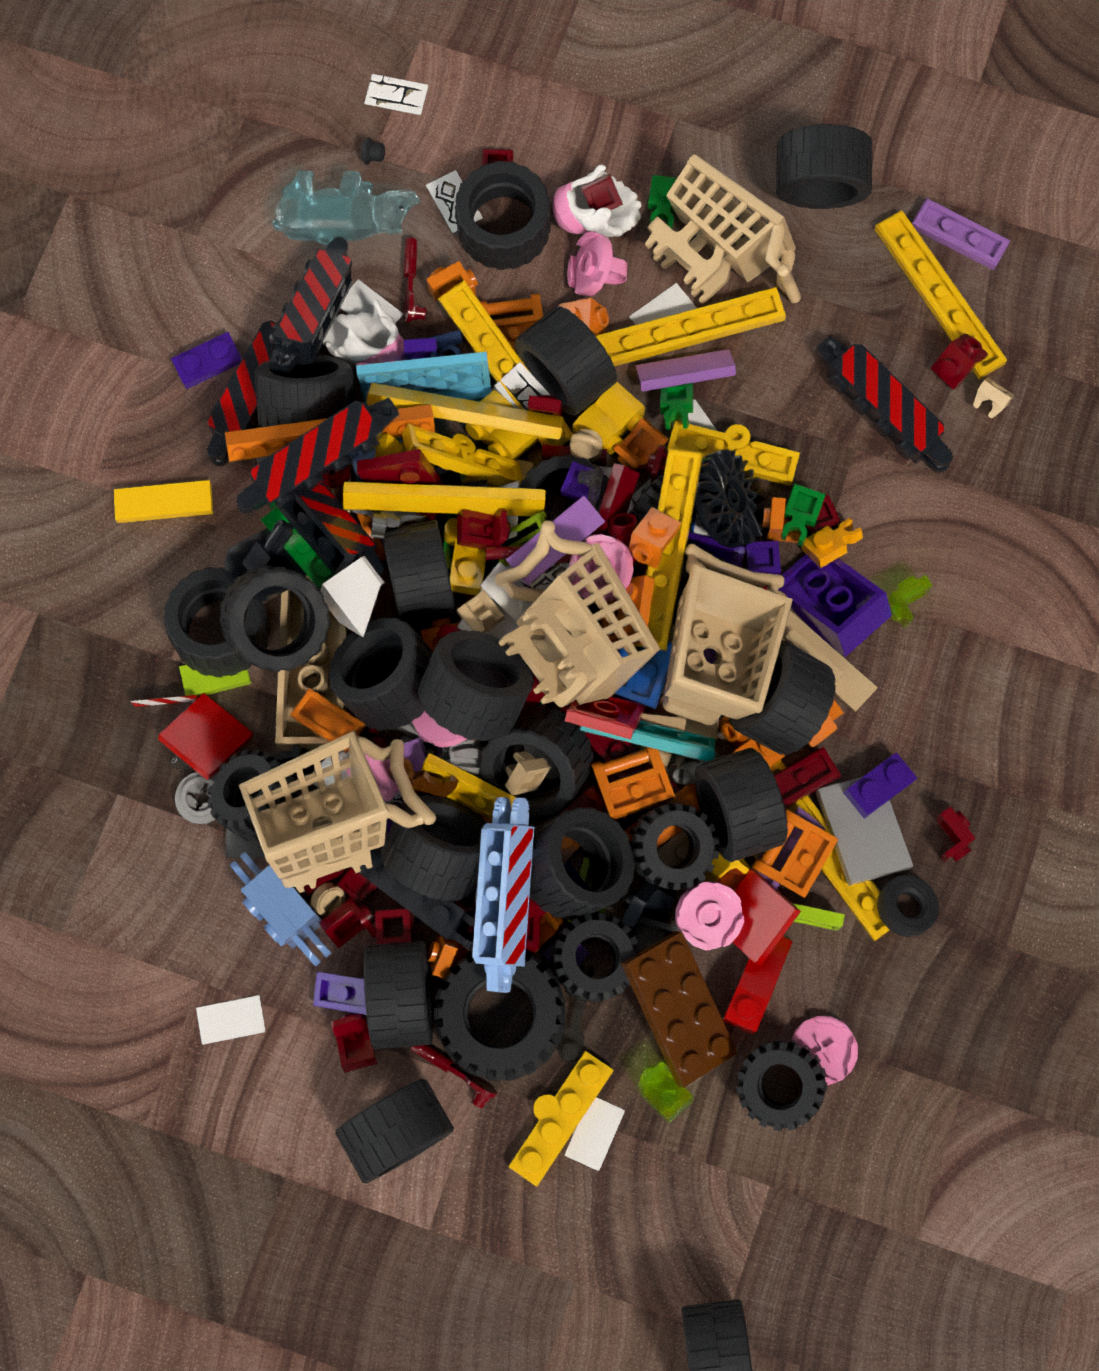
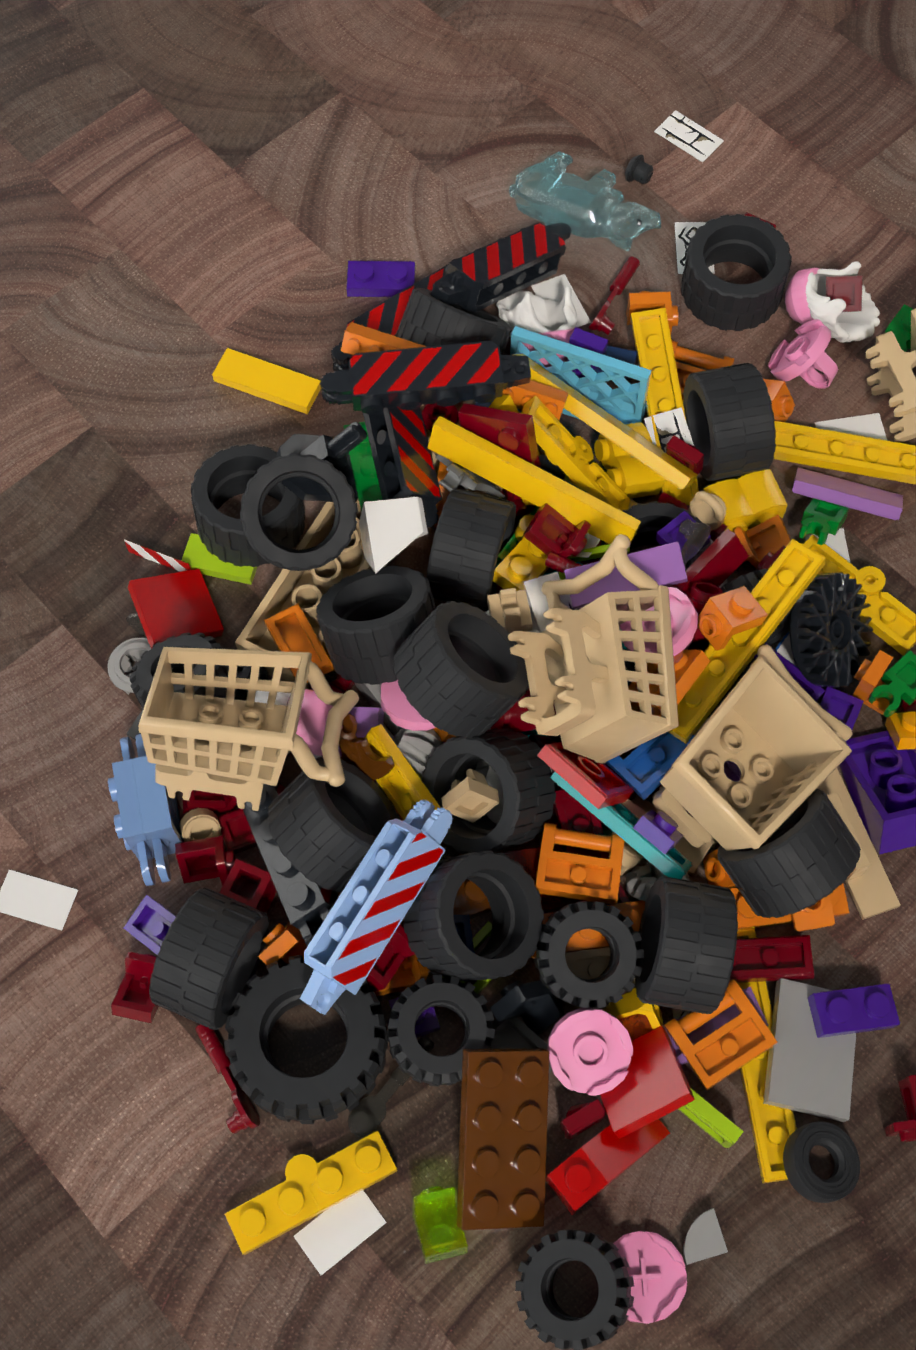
camera: 25 degrees right, 10 degrees down
(394, 1130) = (121, 1101): black tyre -> none
(679, 728) = (659, 830): none -> dark purple plate
(725, 964) = (581, 1118): none -> dark red tile
(852, 1002) = (703, 1239): none -> light grey tile

